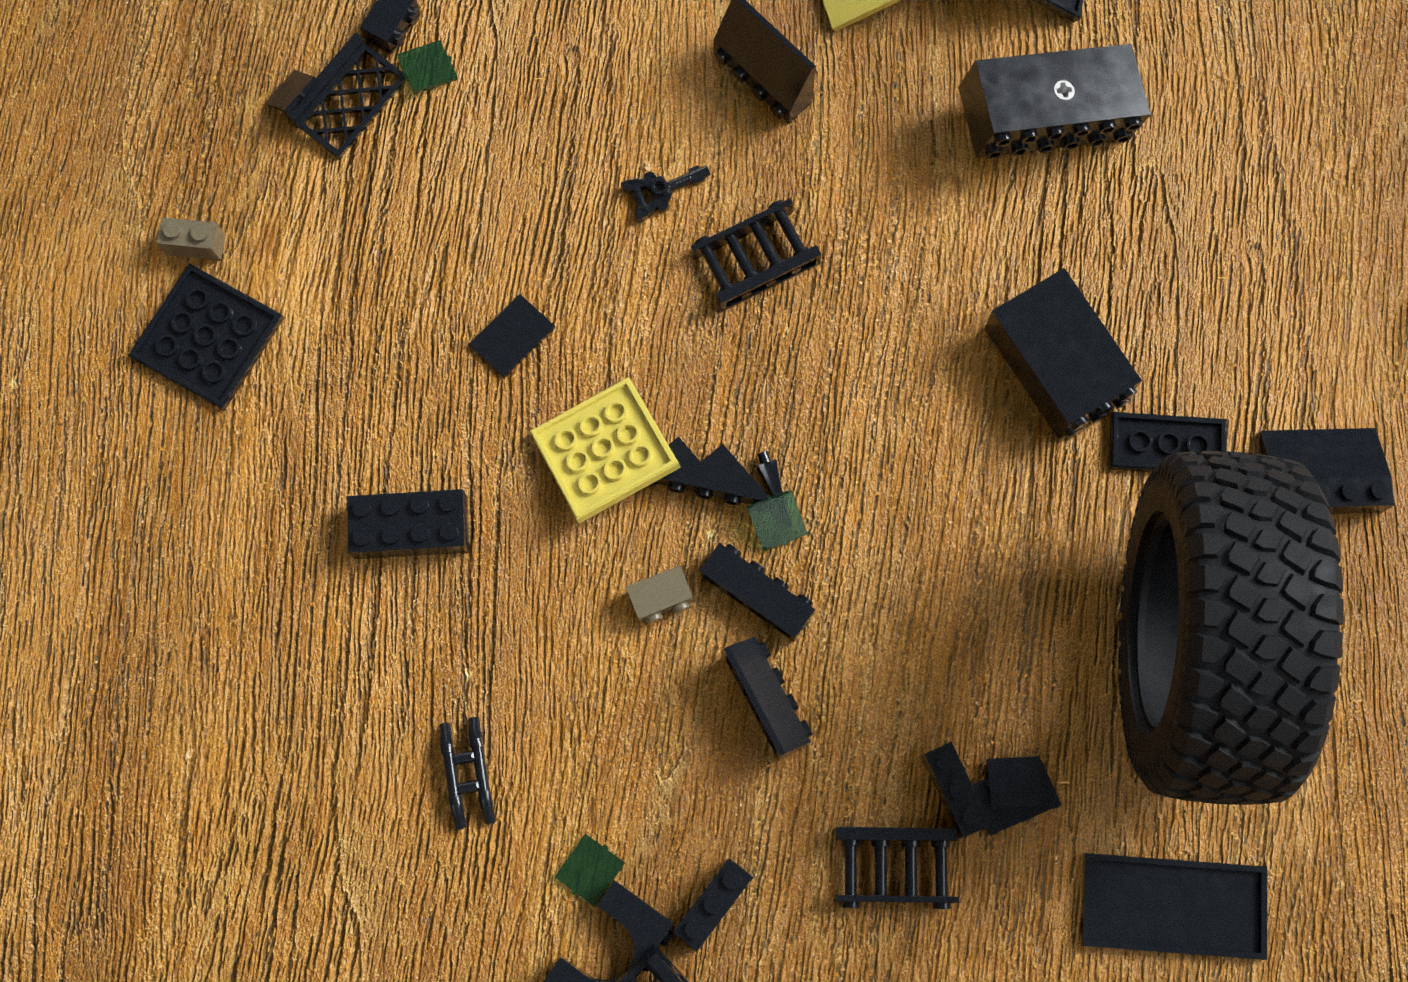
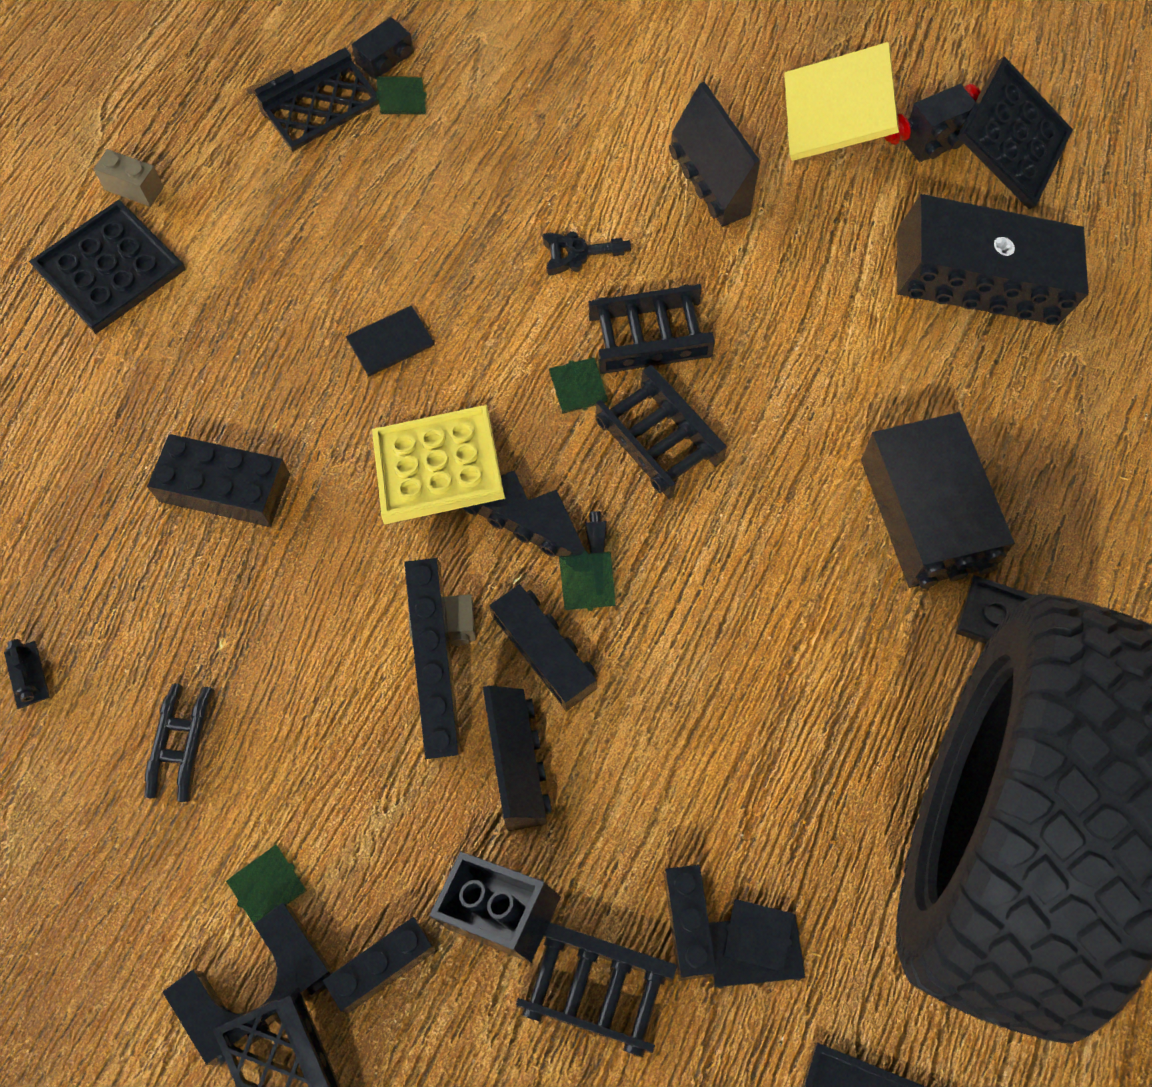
camera: 15 degrees right, 10 degrees down
(304, 755) = (25, 673): none -> black hinge
(669, 635) = (432, 658): none -> black brick
(705, 329) = (578, 385): none -> clear green piece
(794, 828) = (495, 906): none -> black brick
(821, 344) = (670, 406): none -> black fence

